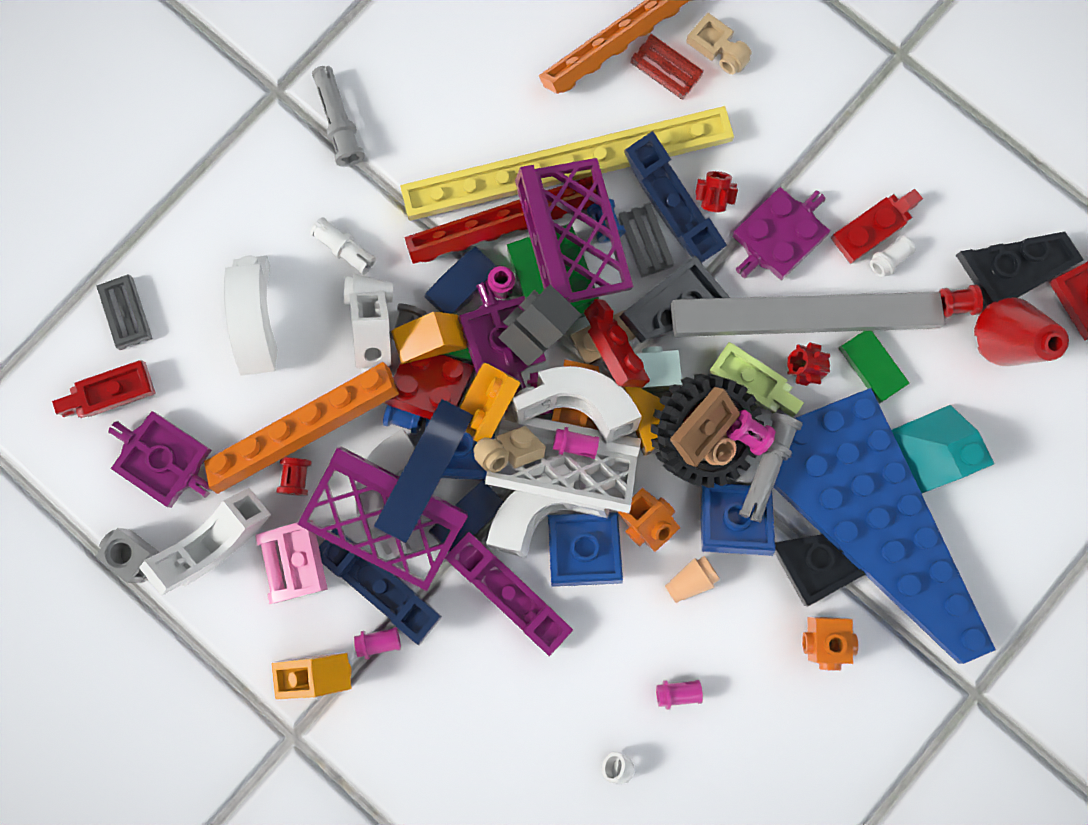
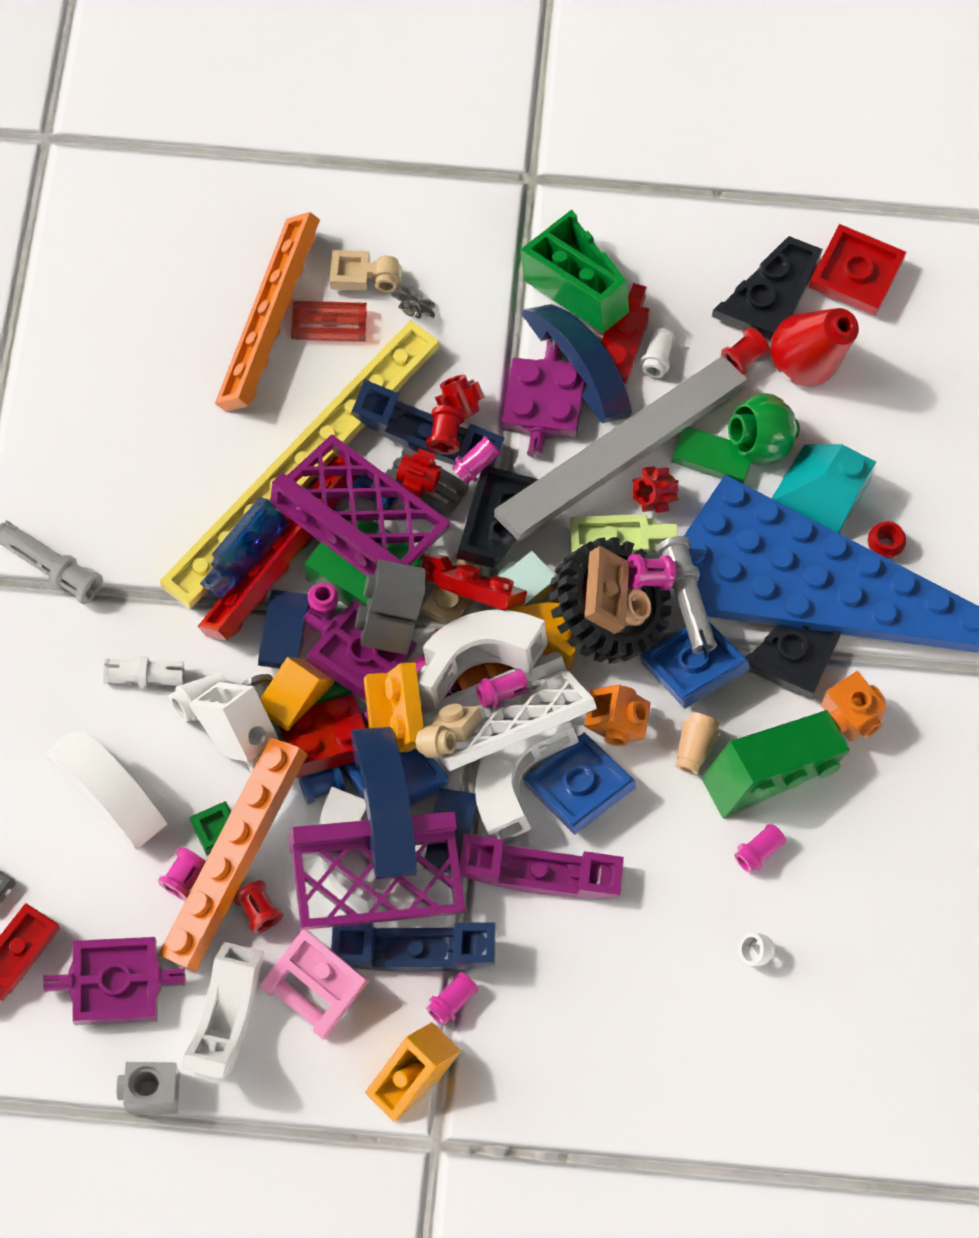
camera: 40 degrees left, 15 degrees down
(260, 415) = (182, 873): none -> dark pink bush
(307, 390) = (209, 825): none -> green tile
(474, 201) = (244, 547): none -> clear blue hinge
(640, 231) = (419, 473): none -> red gear
(686, 210) = (445, 430): none -> red bush
(690, 250) = (476, 460): none -> dark pink pin
(738, 94) = (413, 304): none -> clear smoke plant
(739, 641) = (774, 761): none -> green wedge
(835, 224) = (605, 387): none -> dark blue slope
(876, 152) = (576, 273): none -> green wedge
(931, 373) = (766, 426): none -> green plant
(965, 520) = (887, 530): none -> red plate

